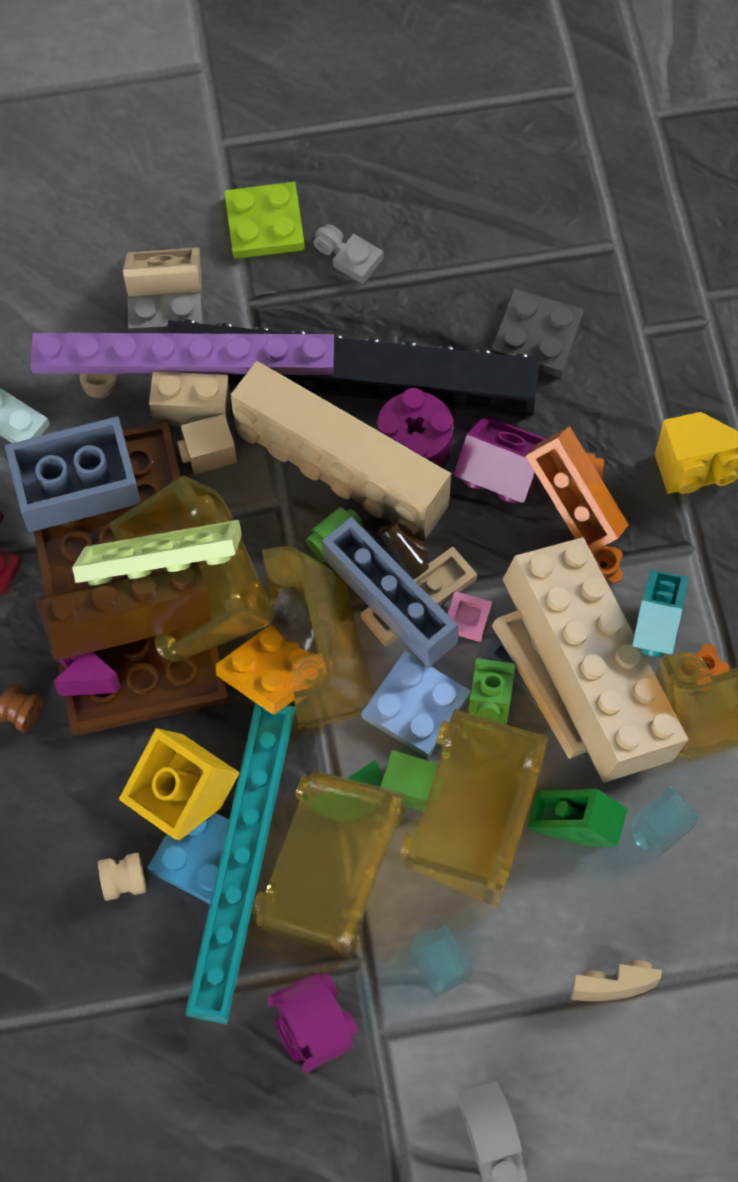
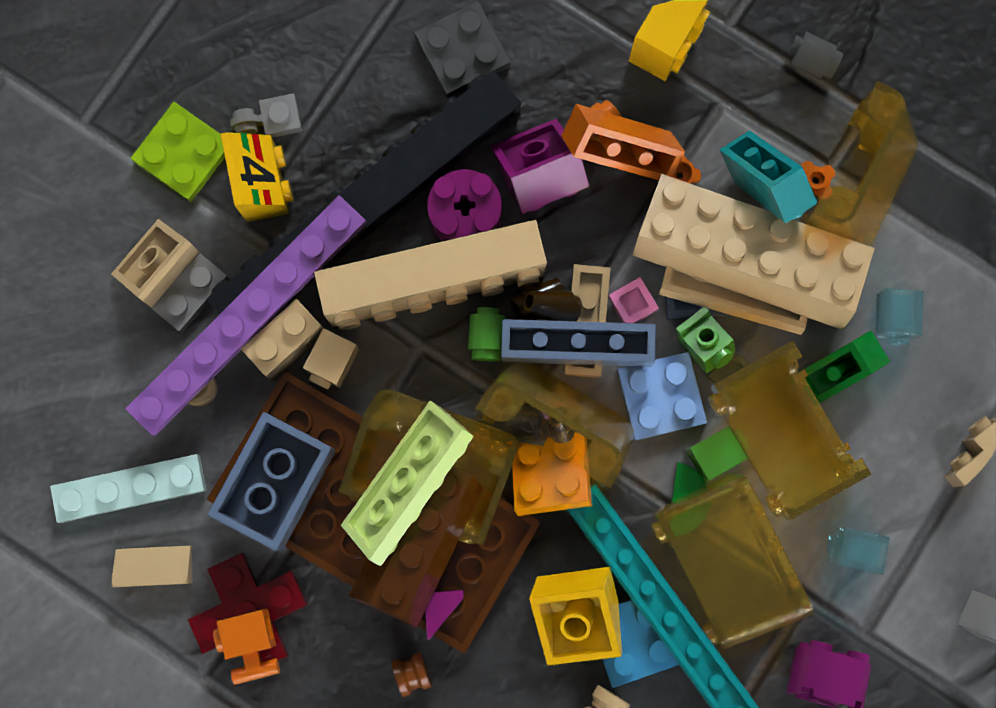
camera: 50 degrees left, 15 degrees up
(292, 274) = (256, 175): none -> yellow slope

